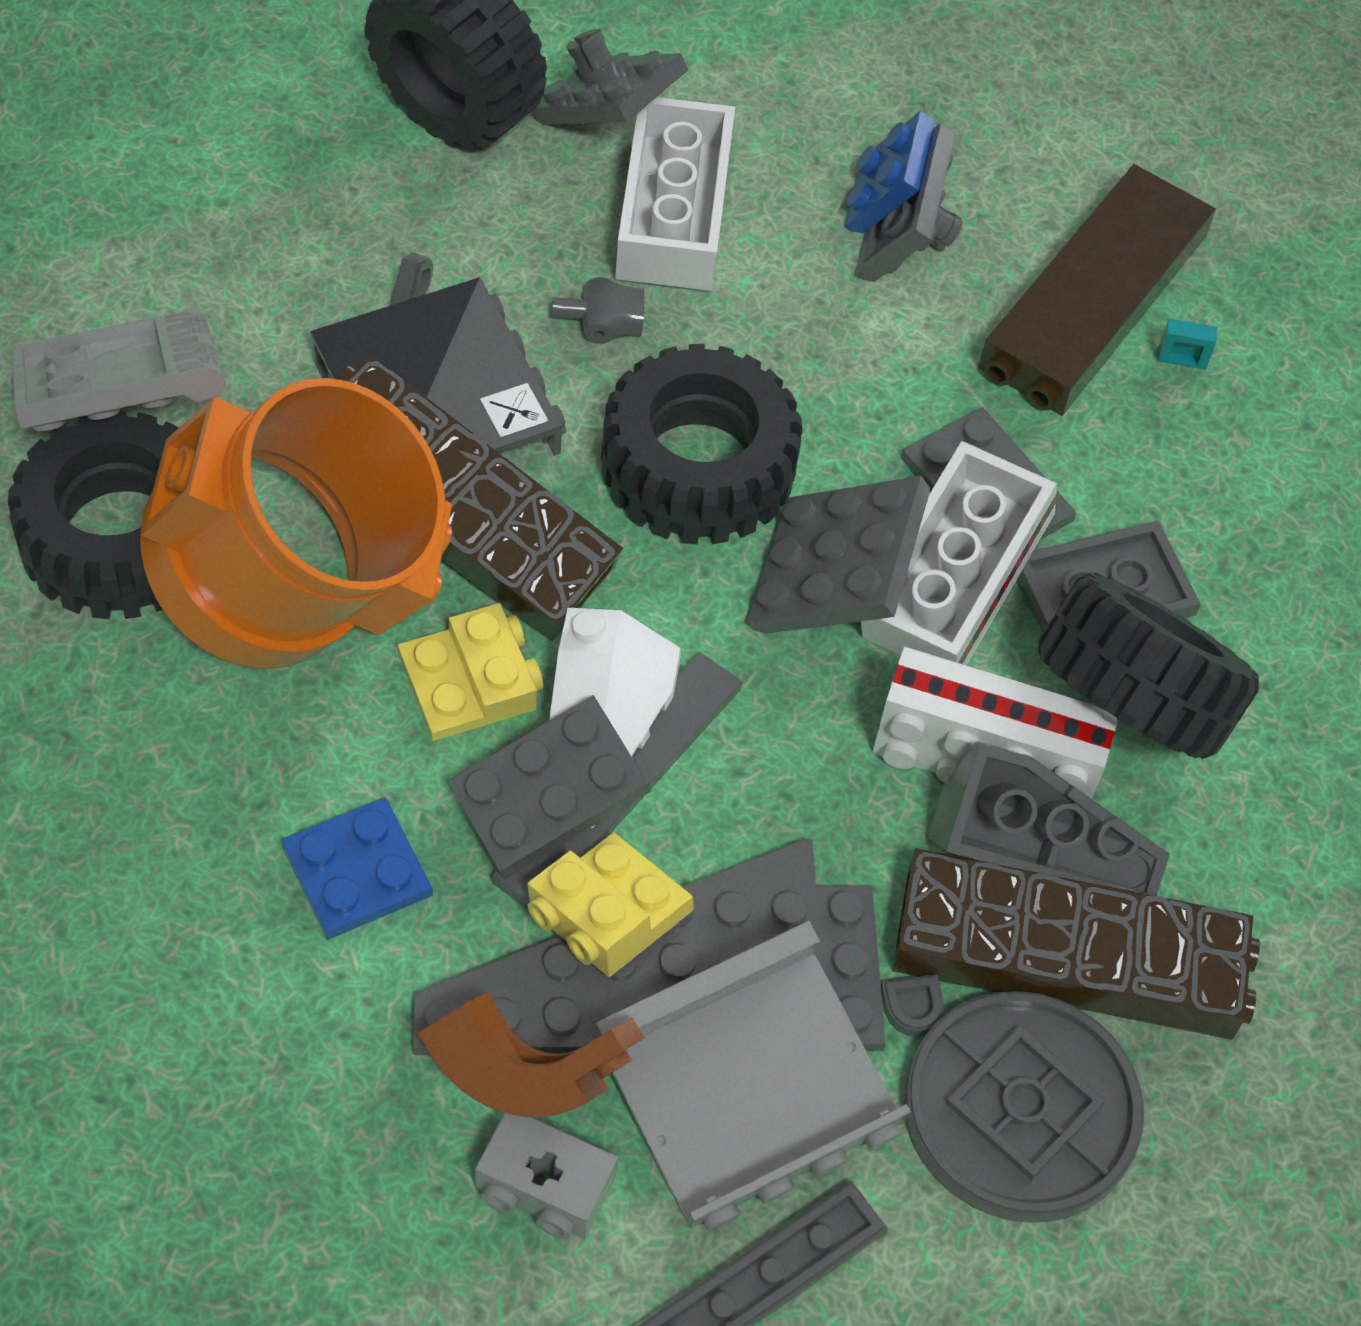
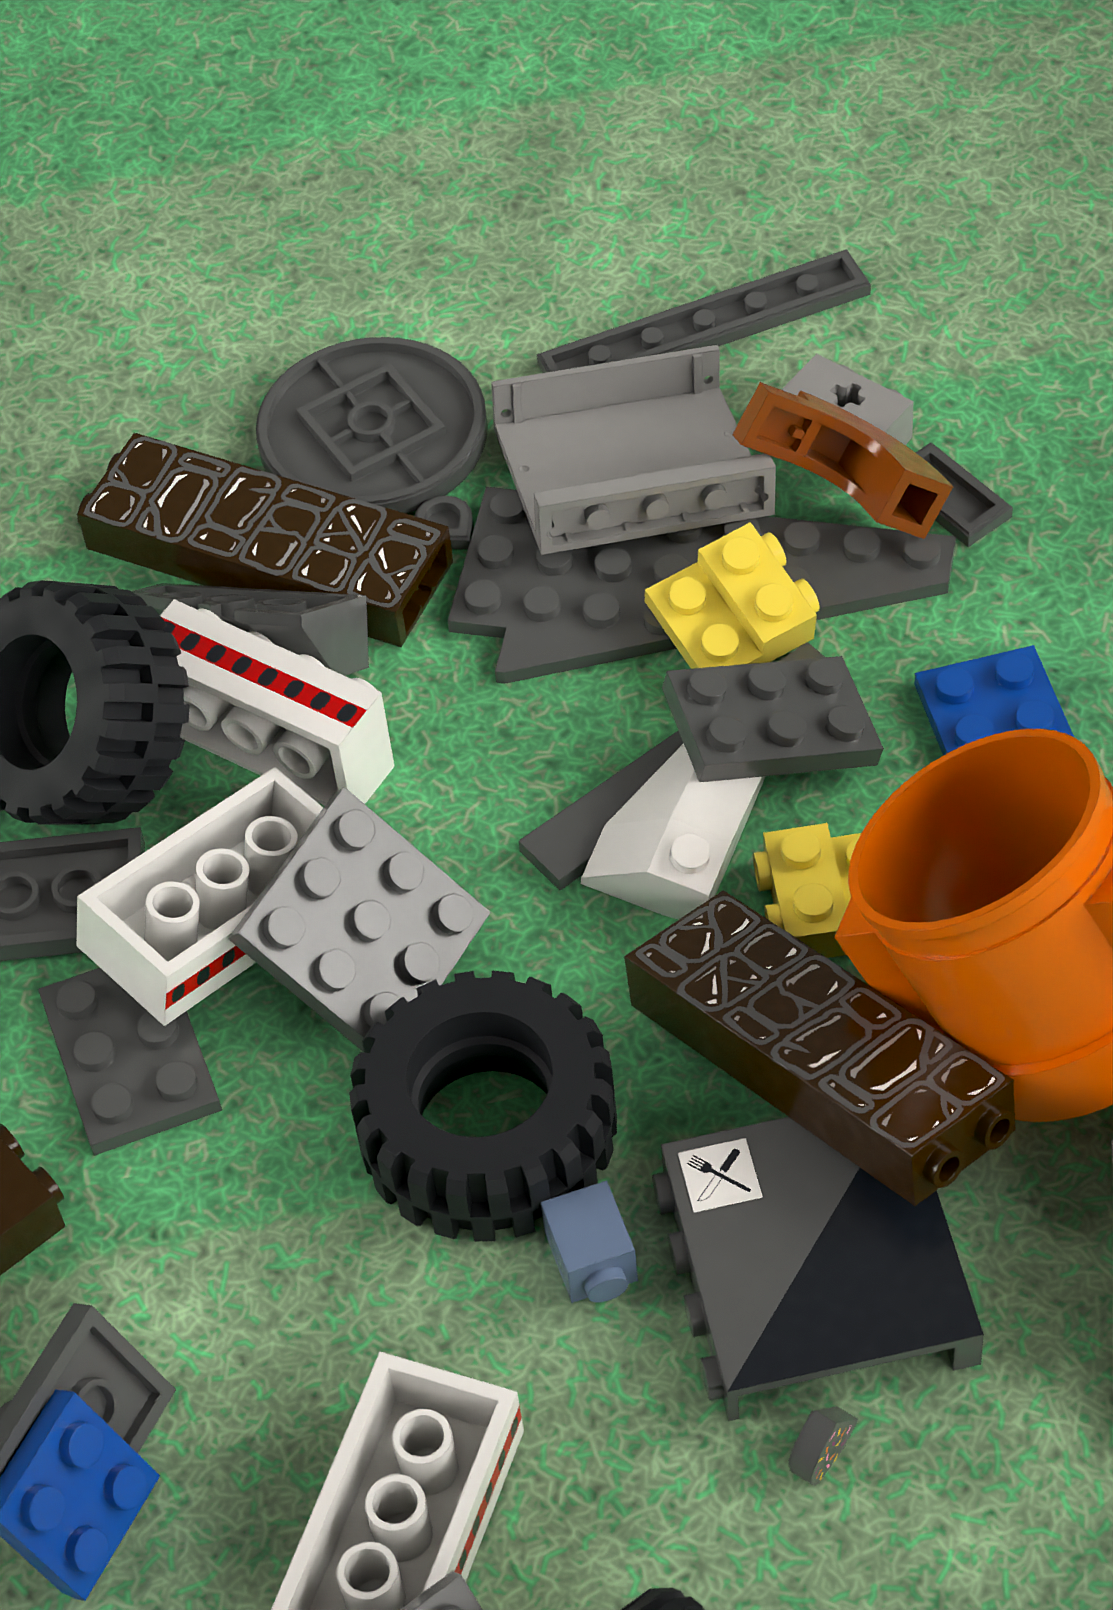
camera: 155 degrees left, 5 degrees down
(427, 1111) = (971, 506): none -> dark grey tile
(592, 374) = (590, 1243): none -> sand blue brick
(606, 310) = (551, 1363): dark grey piece -> none

